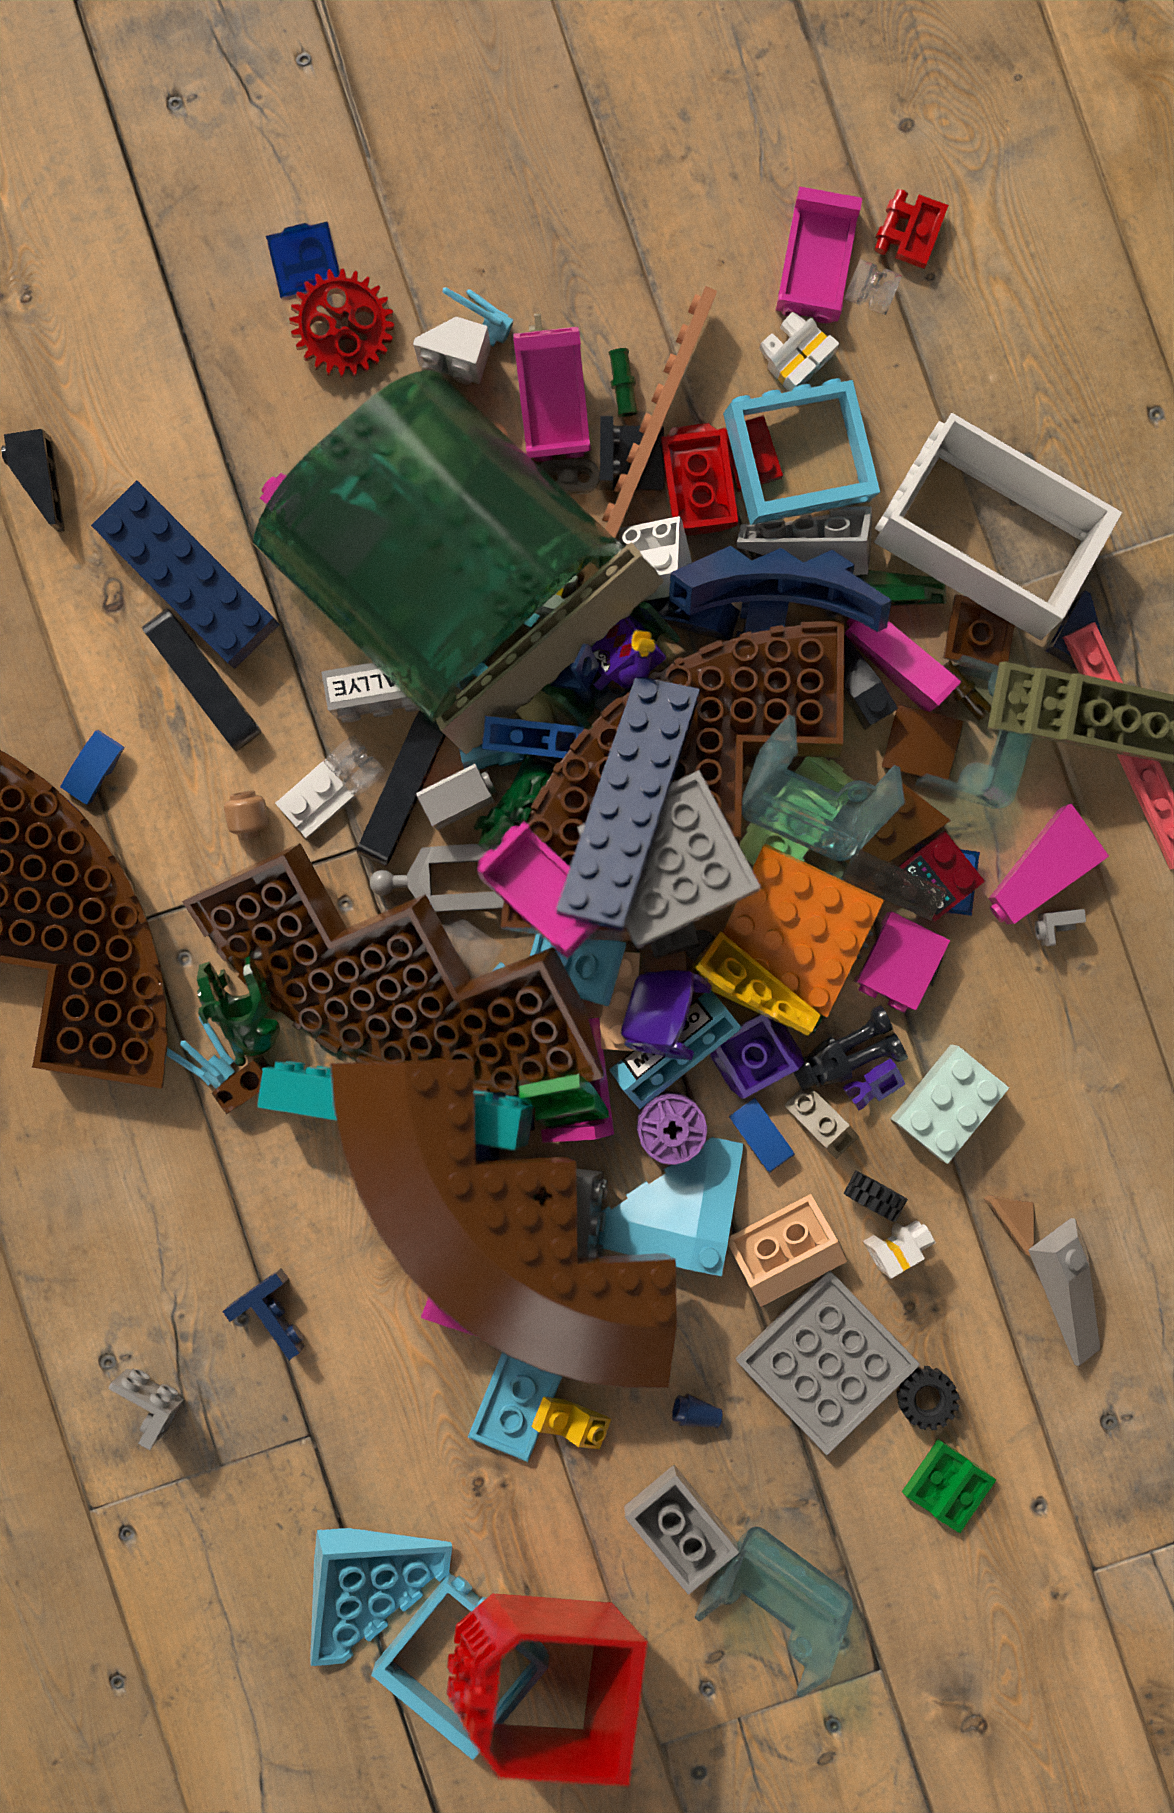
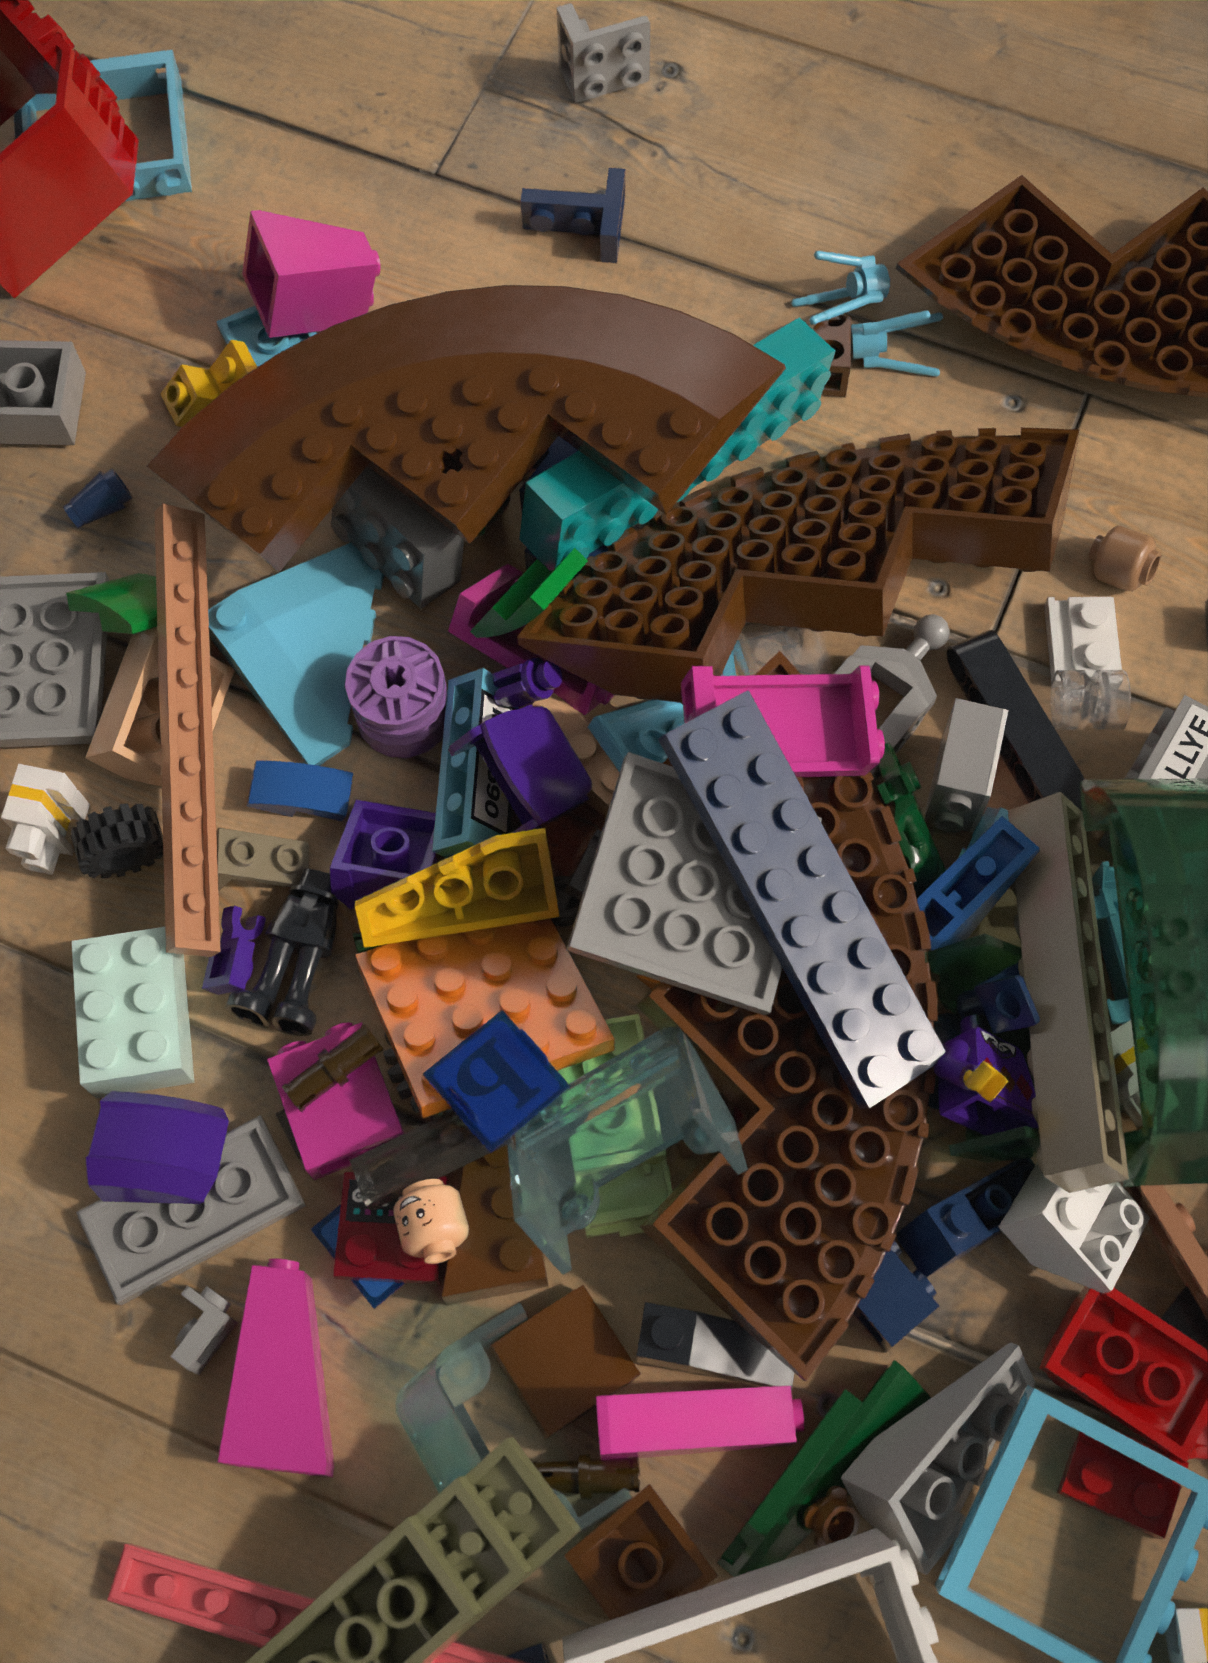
camera: 135 degrees right, 20 degrees down
(179, 1103) = (867, 284): none -> medium azure plant
(238, 1016) = (924, 388): dark green helmet -> none
(362, 1581) = (258, 113): medium azure slope -> none
(463, 1426) = (307, 273): none -> dark pink slope
(609, 1054) = (526, 682): none -> dark purple arm
(744, 1320) = (122, 603): none -> green slope
(778, 576) = (933, 1345): dark blue arch -> none
(790, 1217) = (186, 734): none -> nougat plate
(838, 879) = (496, 1080): none -> clear blue piece
(885, 566) = (831, 1517): none -> reddish brown plate
(895, 970) = (332, 1068): none -> dark brown pin
(926, 852) = (430, 1220): none -> light nougat head
(1000, 1024) = (155, 1149): none -> dark purple slope
(1010, 984) = (156, 1241): none -> light grey tile

